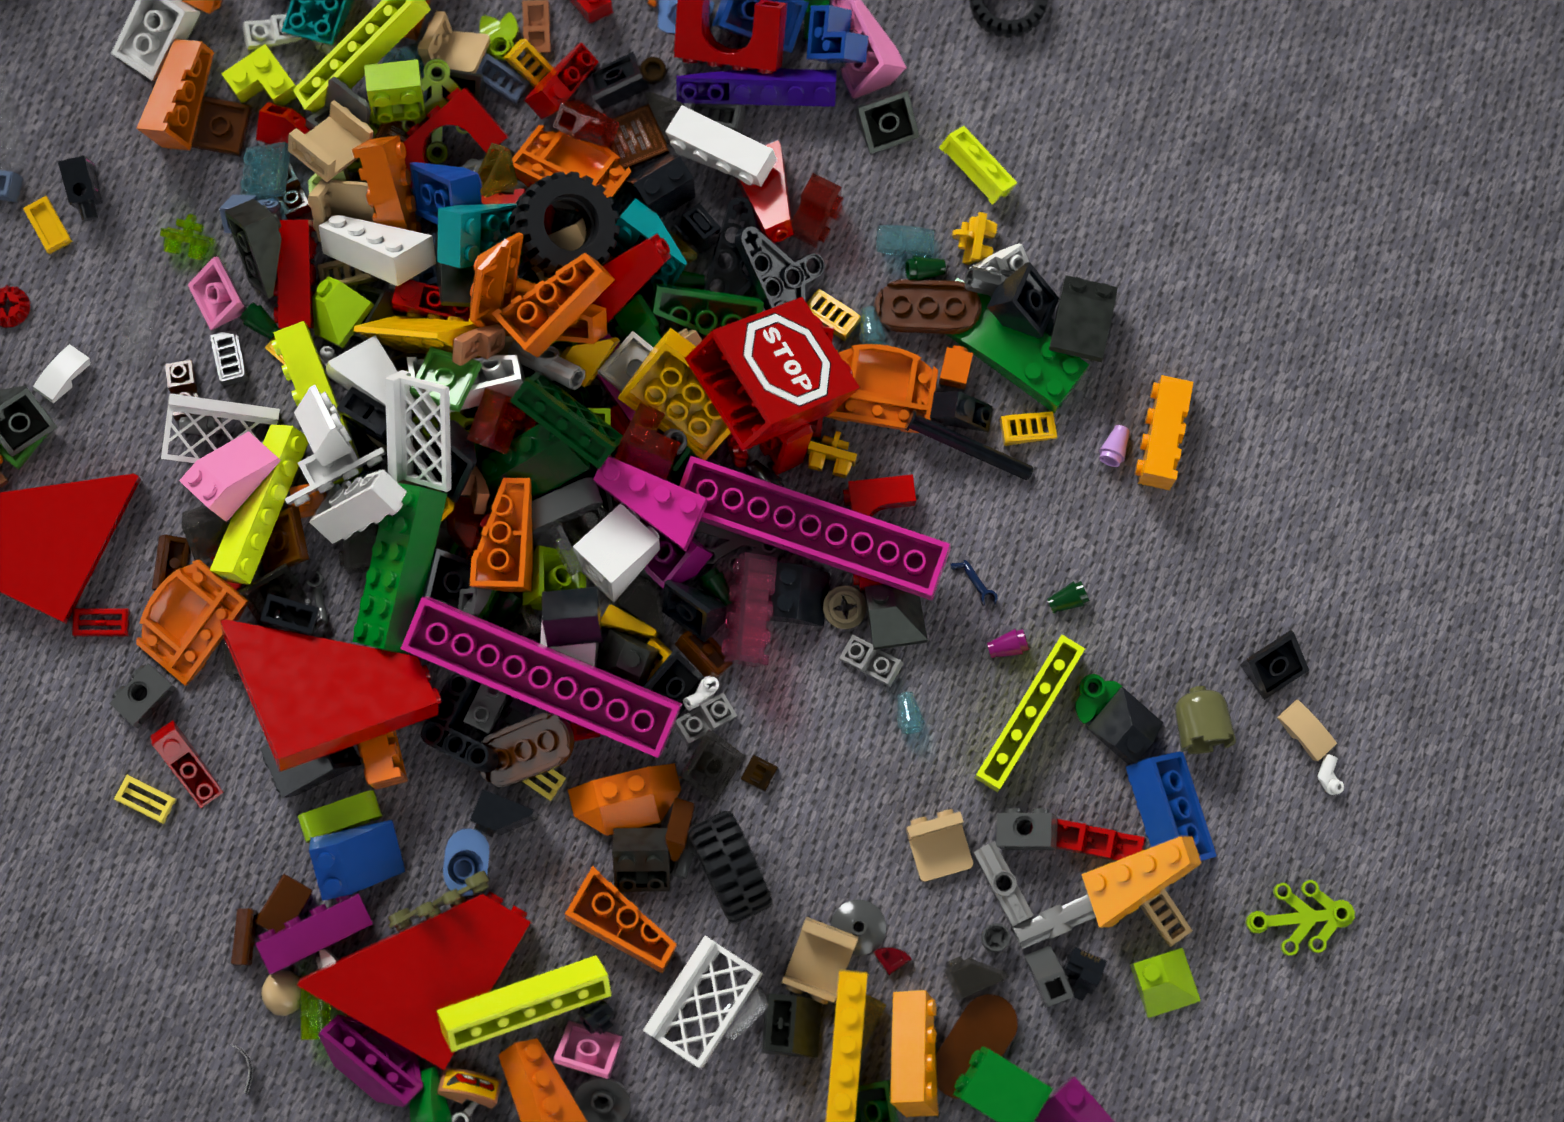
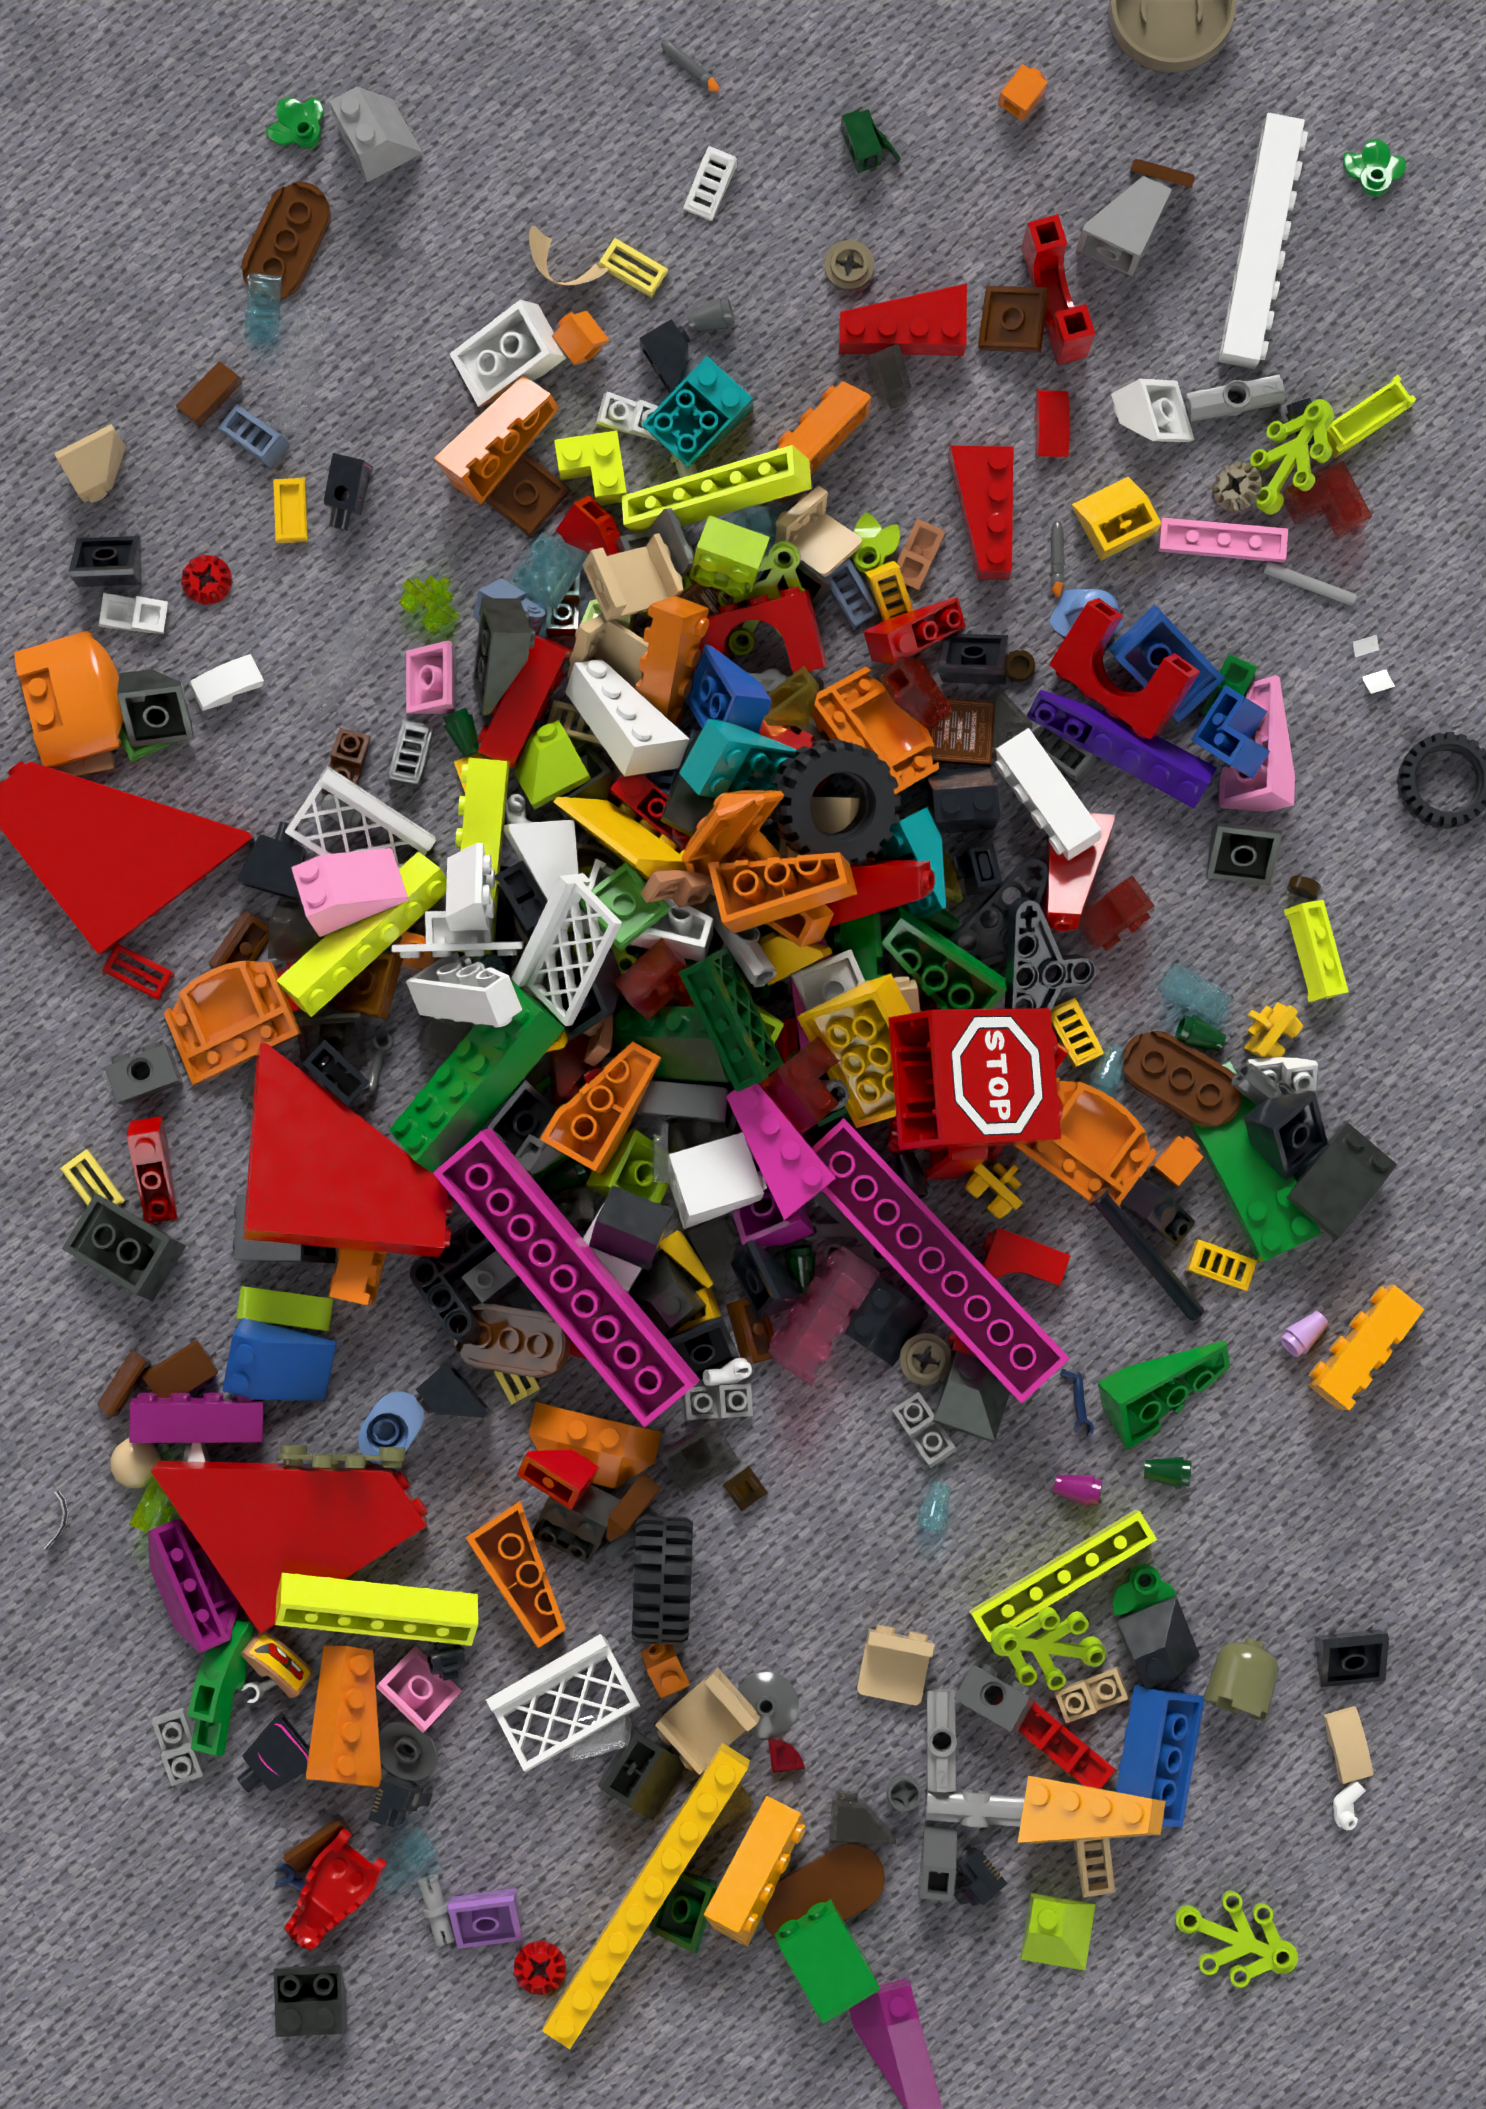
camera: 25 degrees right, 5 degrees up
(164, 492) = (271, 862): none -> black torso
(193, 832) = (124, 1247): none -> pearl dark grey slope
(611, 829) = (559, 1474): none -> red slope
(767, 938) = (664, 1669): none -> orange bracket
(945, 124) = (1304, 887): none -> dark brown tile
(1021, 547) = (1148, 1390): none -> green wedge
(1043, 770) = (1009, 1640): none -> lime plant
(1098, 792) = (1091, 1694): none -> tan slope

